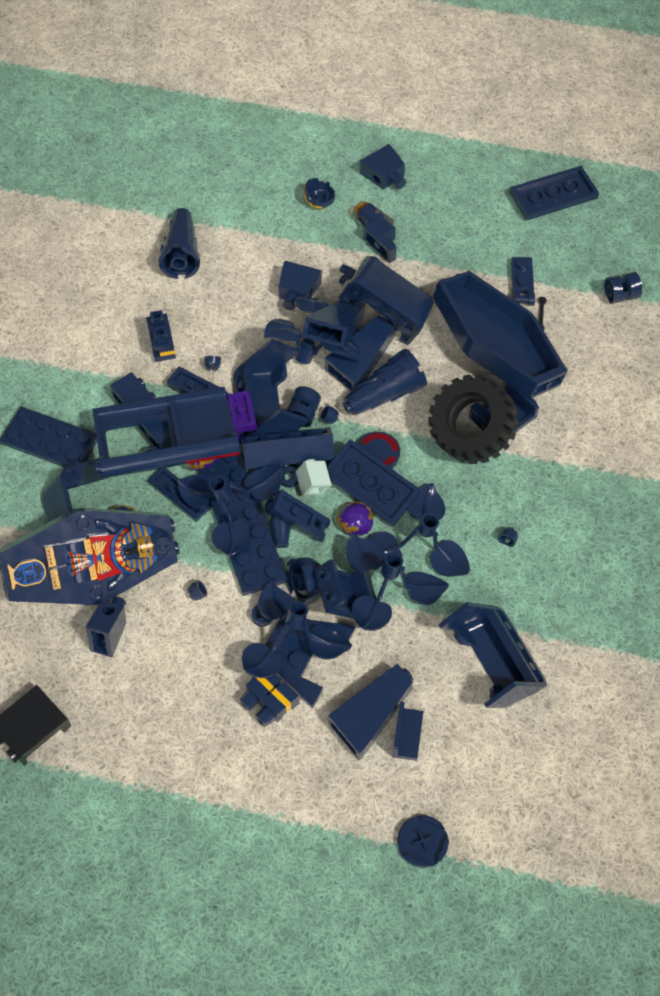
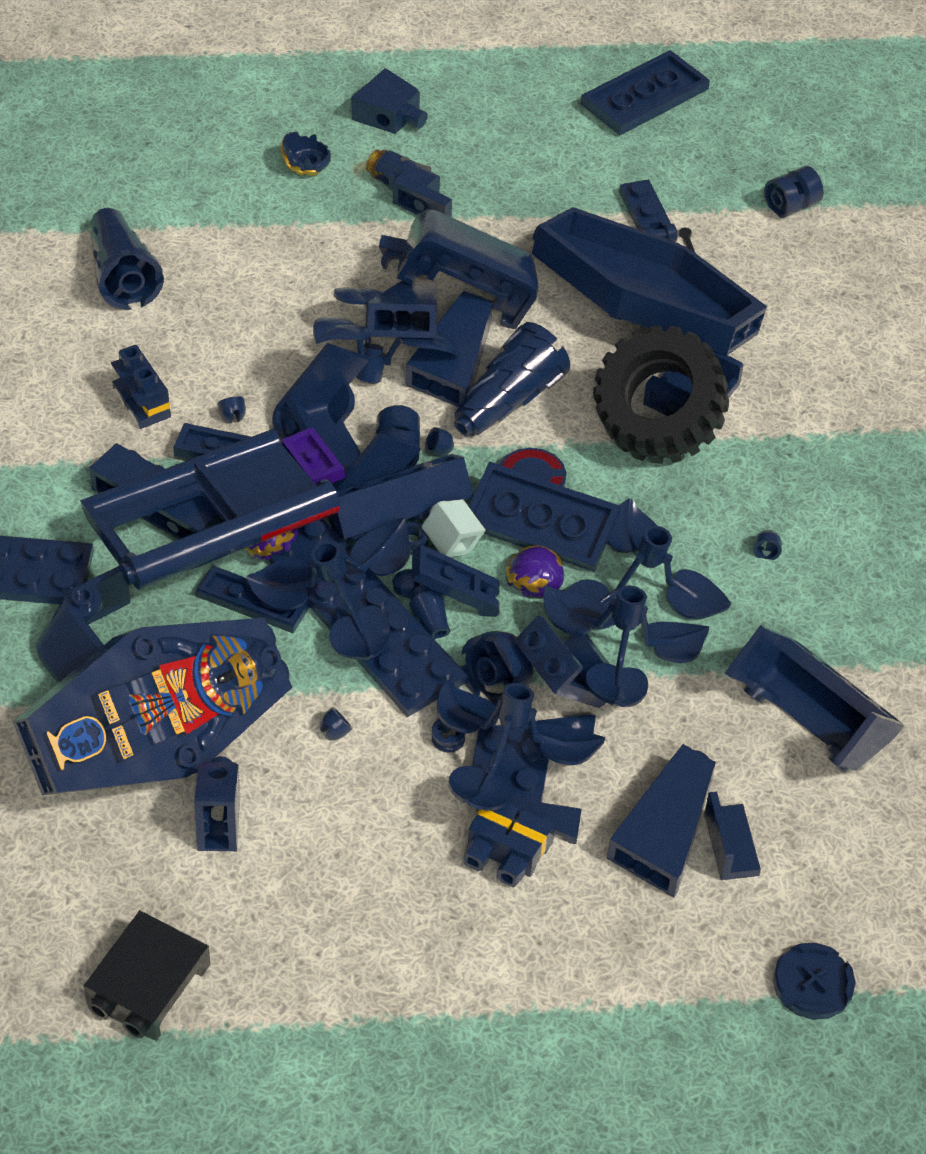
camera: 20 degrees left, 10 degrees down
(297, 281) = (318, 274): dark blue torso -> none

